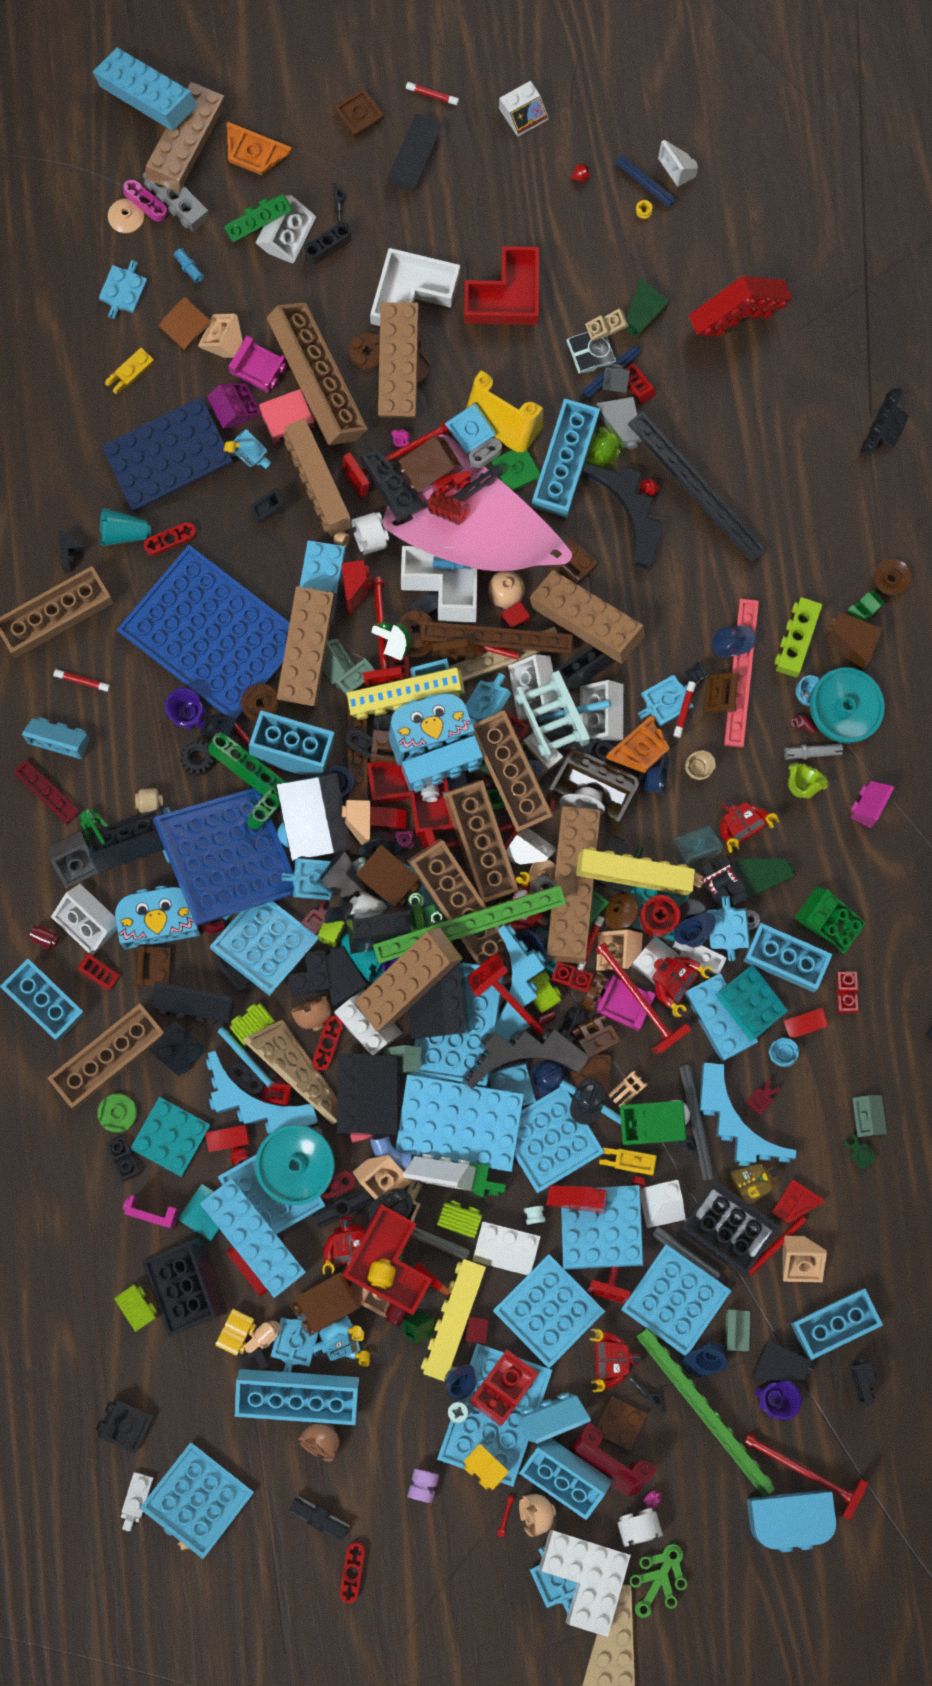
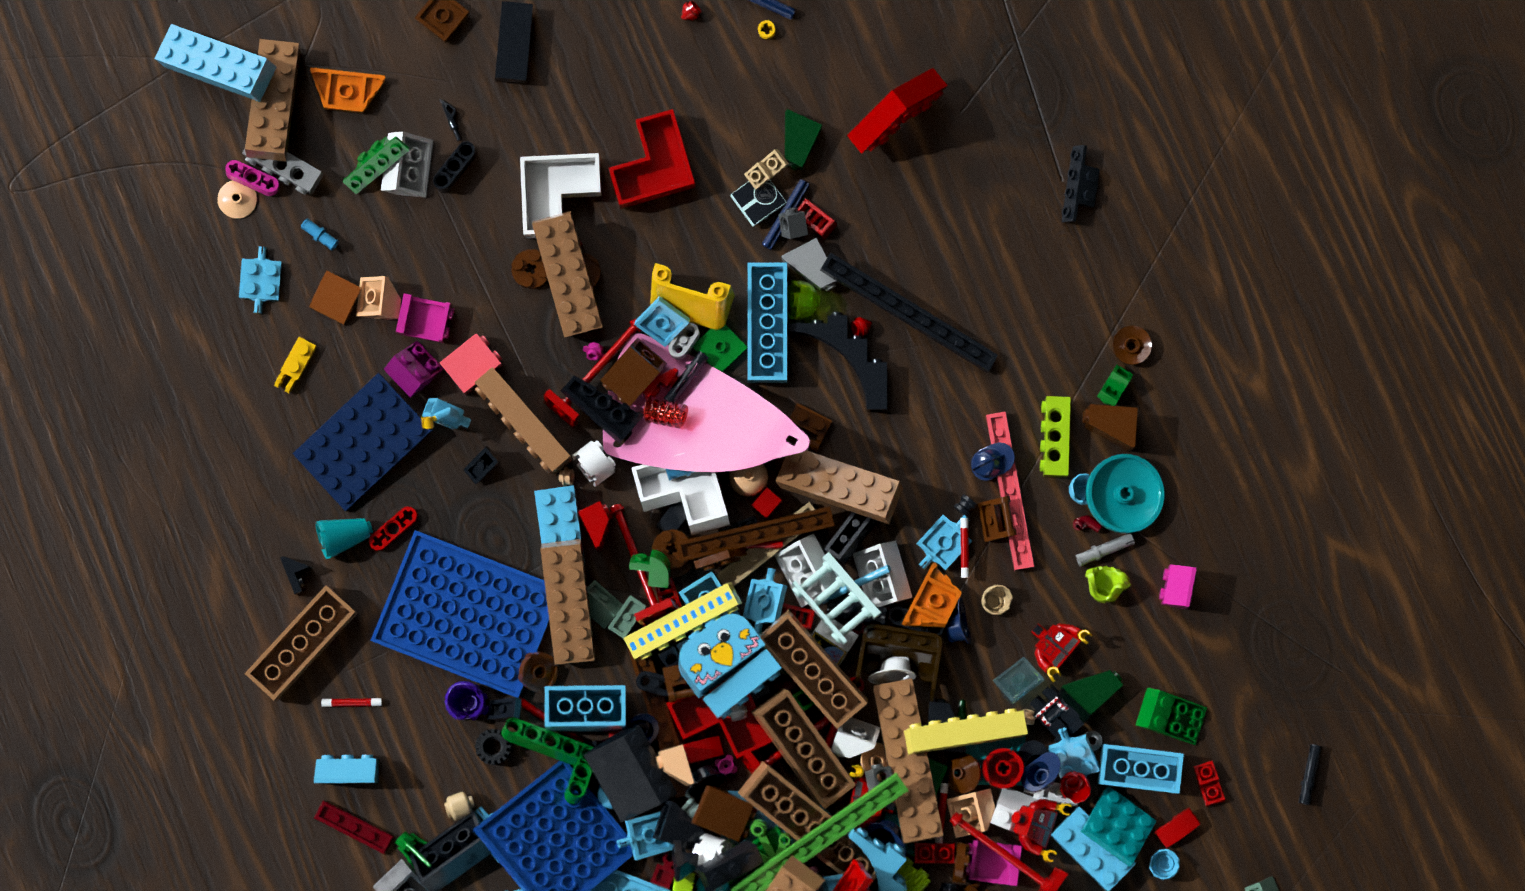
camera: 15 degrees left, 5 degrees up
(317, 373) = (488, 312): medium nougat brick -> none
(722, 954) = (1075, 786): none -> red hair

